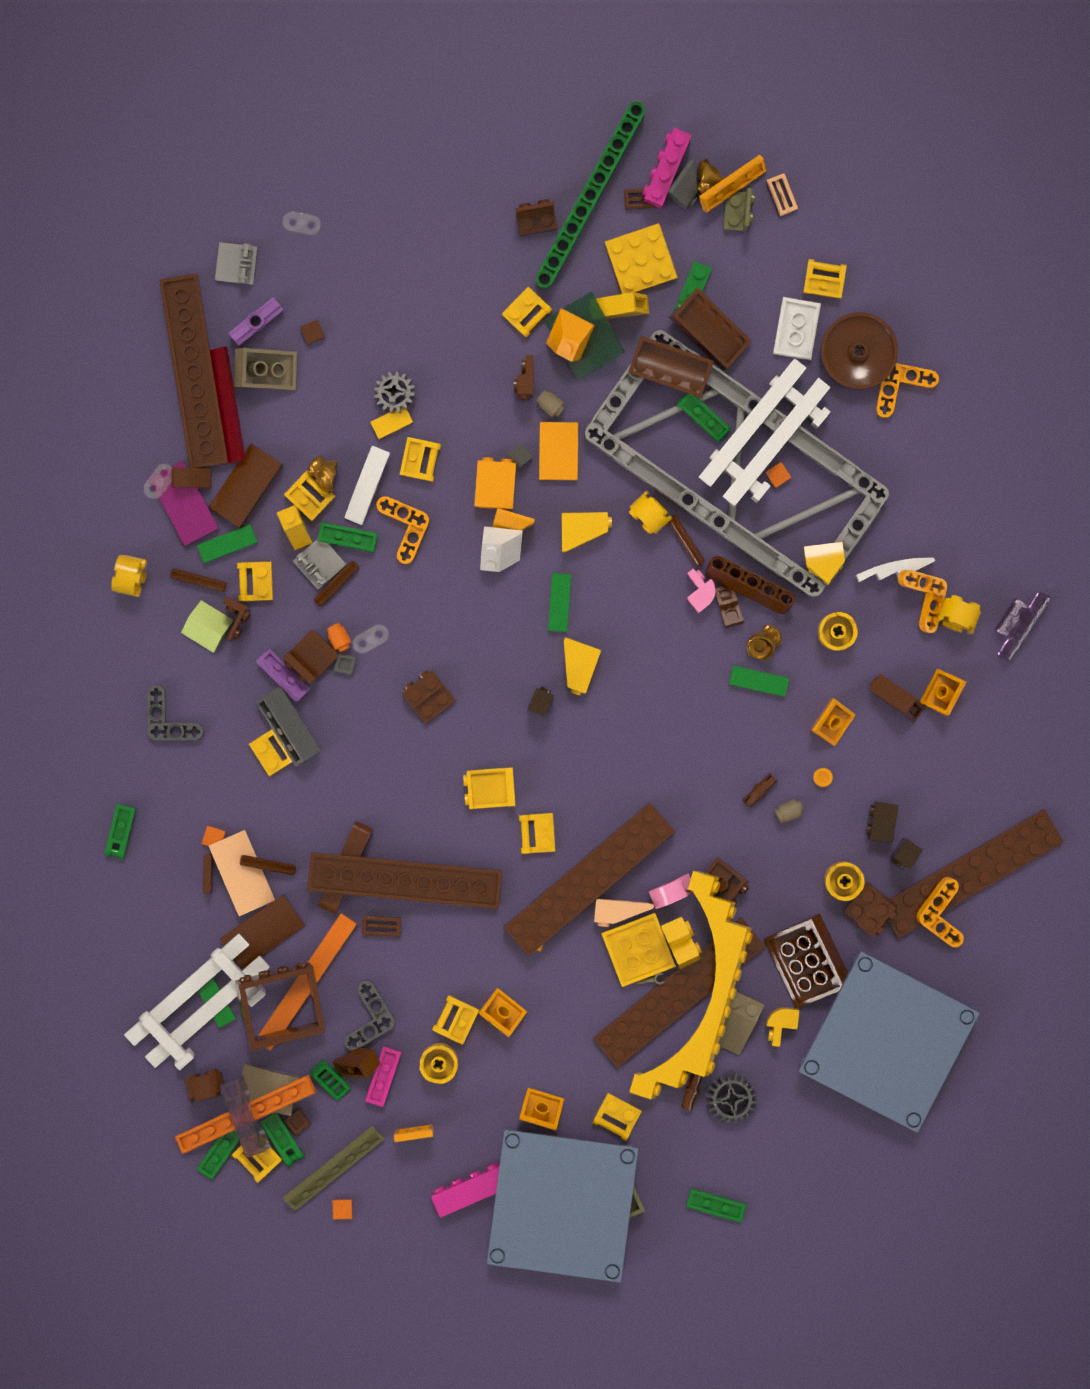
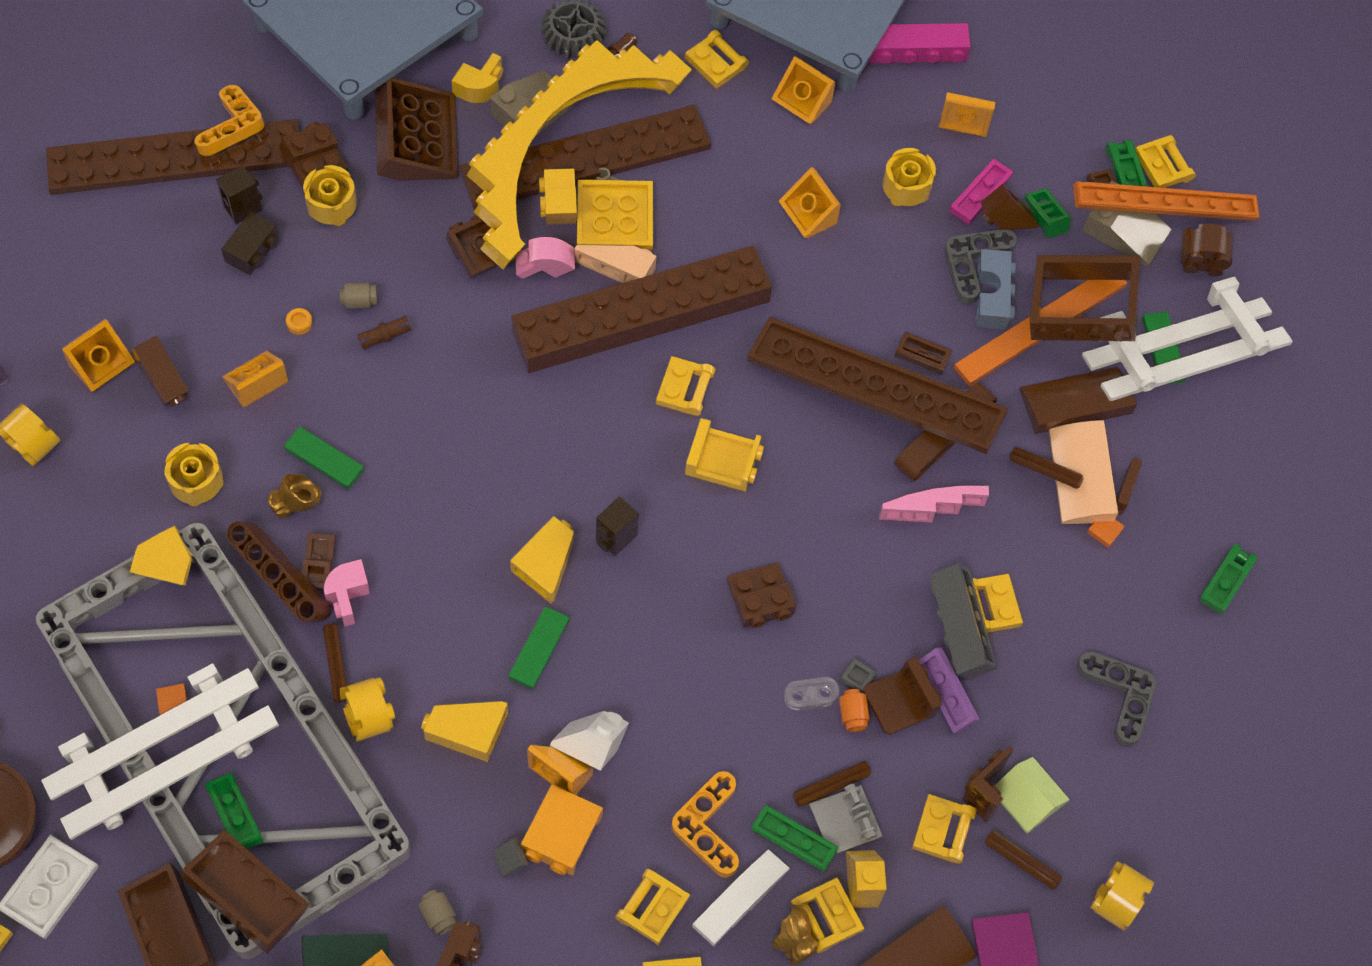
camera: 165 degrees left, 25 degrees down
(218, 1154) = (1216, 178): green tile -> none
(227, 543) = (966, 894): green tile -> none
(249, 1132) = (1172, 221): arch -> none
(333, 1168) = (1066, 122): olive plate -> none
(341, 804) = (924, 504): none -> bright pink slope
(342, 1209) = (1078, 78): orange tile -> none
(350, 1012) = (995, 308): none -> sand blue arch
(461, 1023) = (863, 214): yellow plate -> none
(558, 451) = (455, 845): light orange tile -> none
(894, 567) = (71, 522): white slope -> none
(932, 593) = (52, 467): light orange beam -> none

